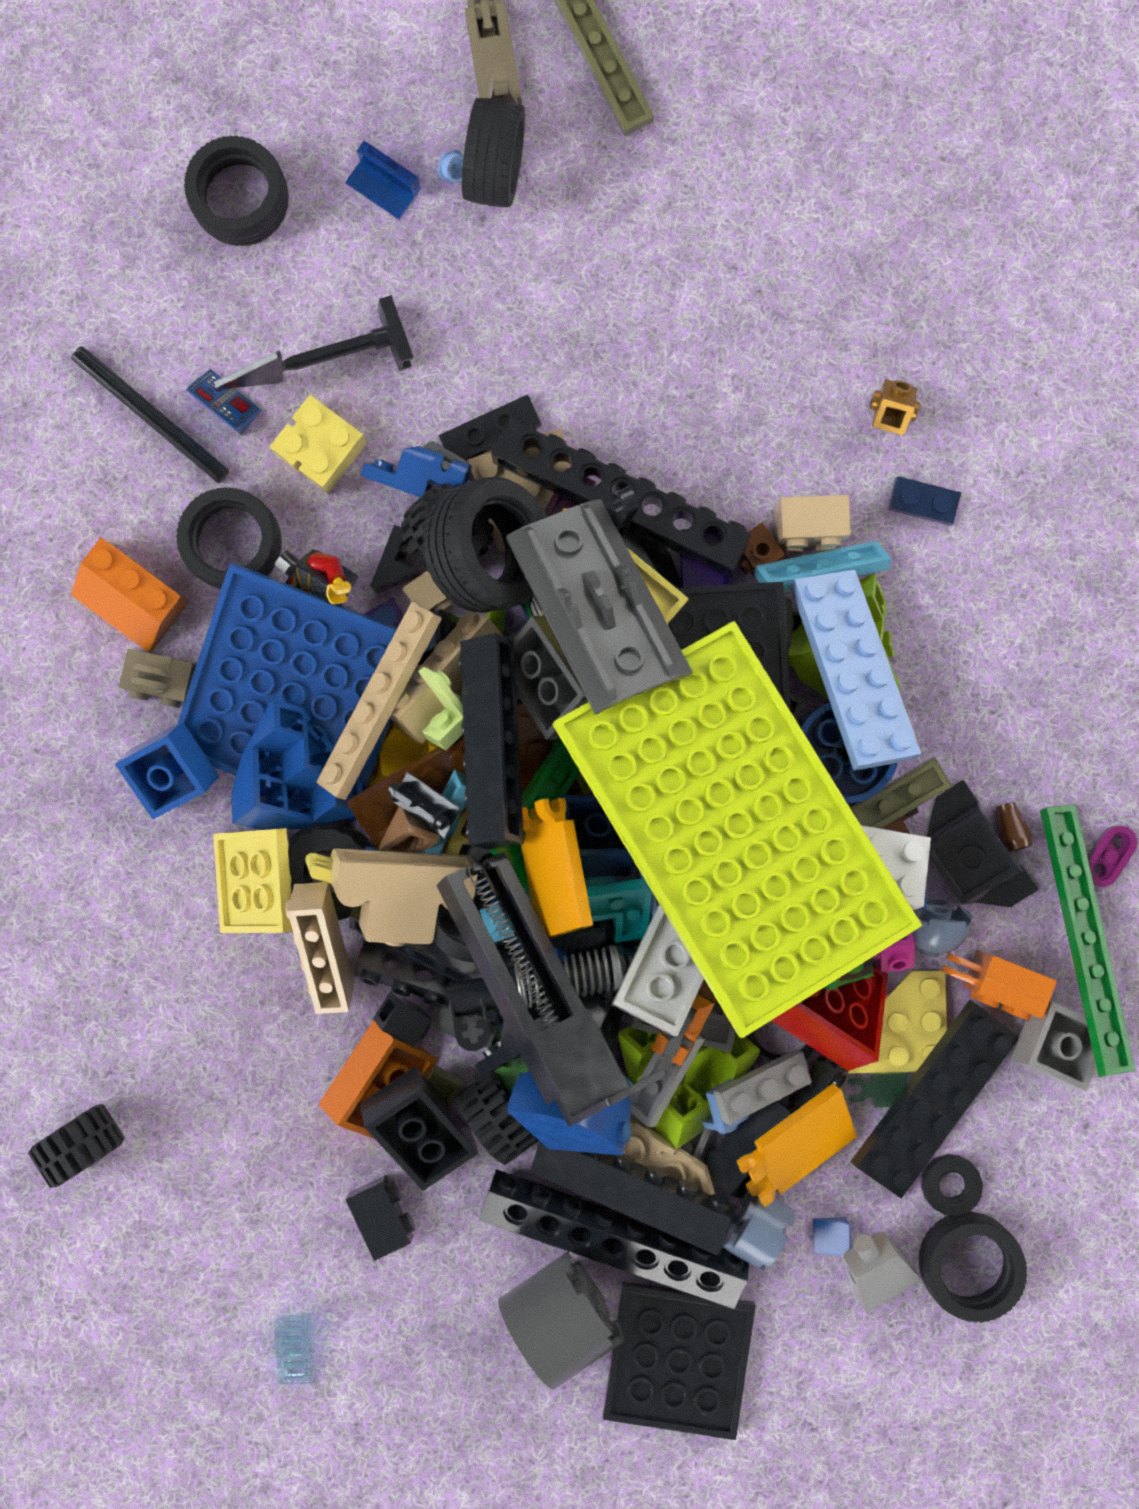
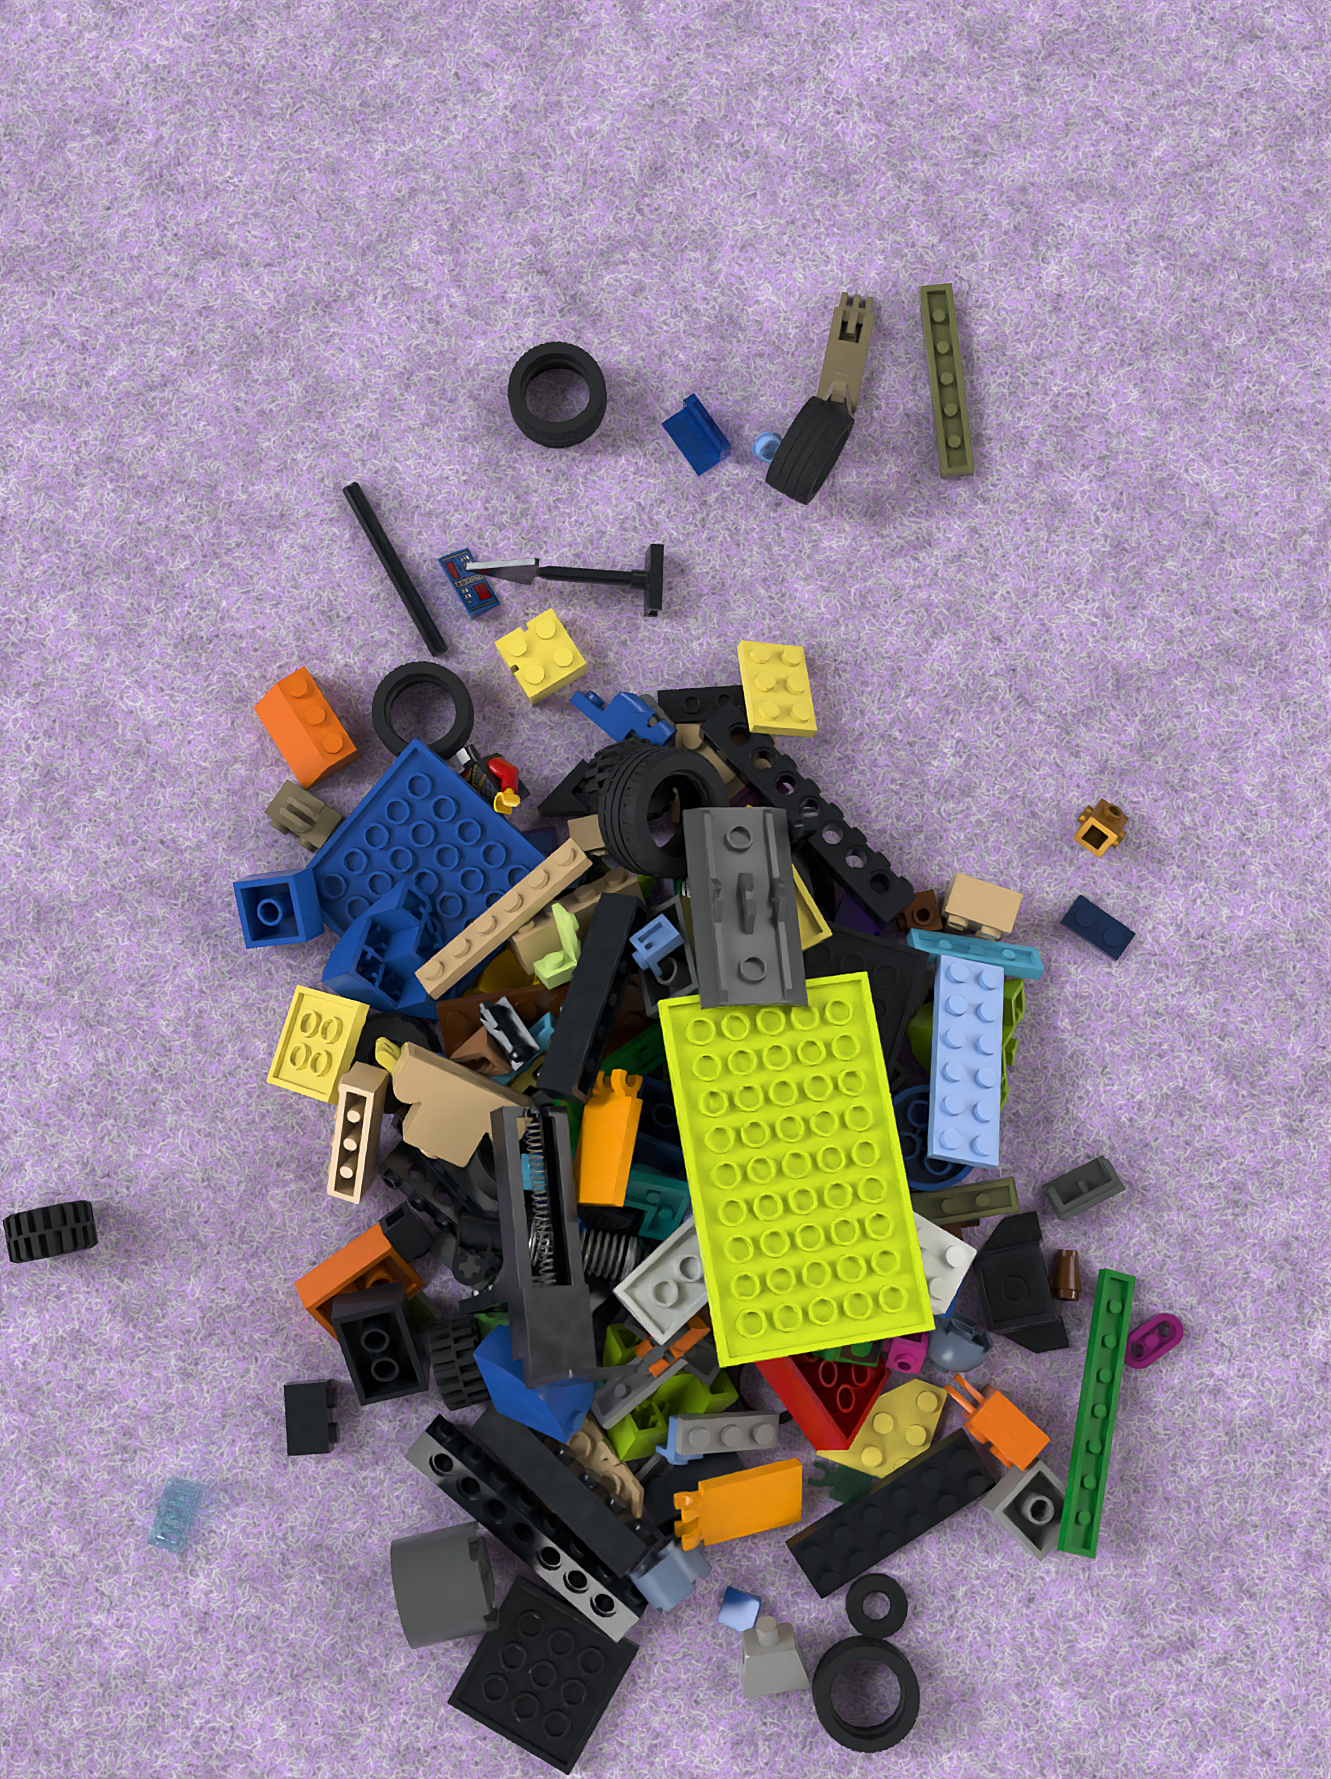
camera: 20 degrees right, 5 degrees down
(527, 670) = (654, 943): none -> medium blue bracket
(548, 391) = (776, 689): none -> light yellow plate
(824, 1075) = (791, 1445): black hinge -> none
(999, 742) = (1083, 1188): none -> dark grey hinge

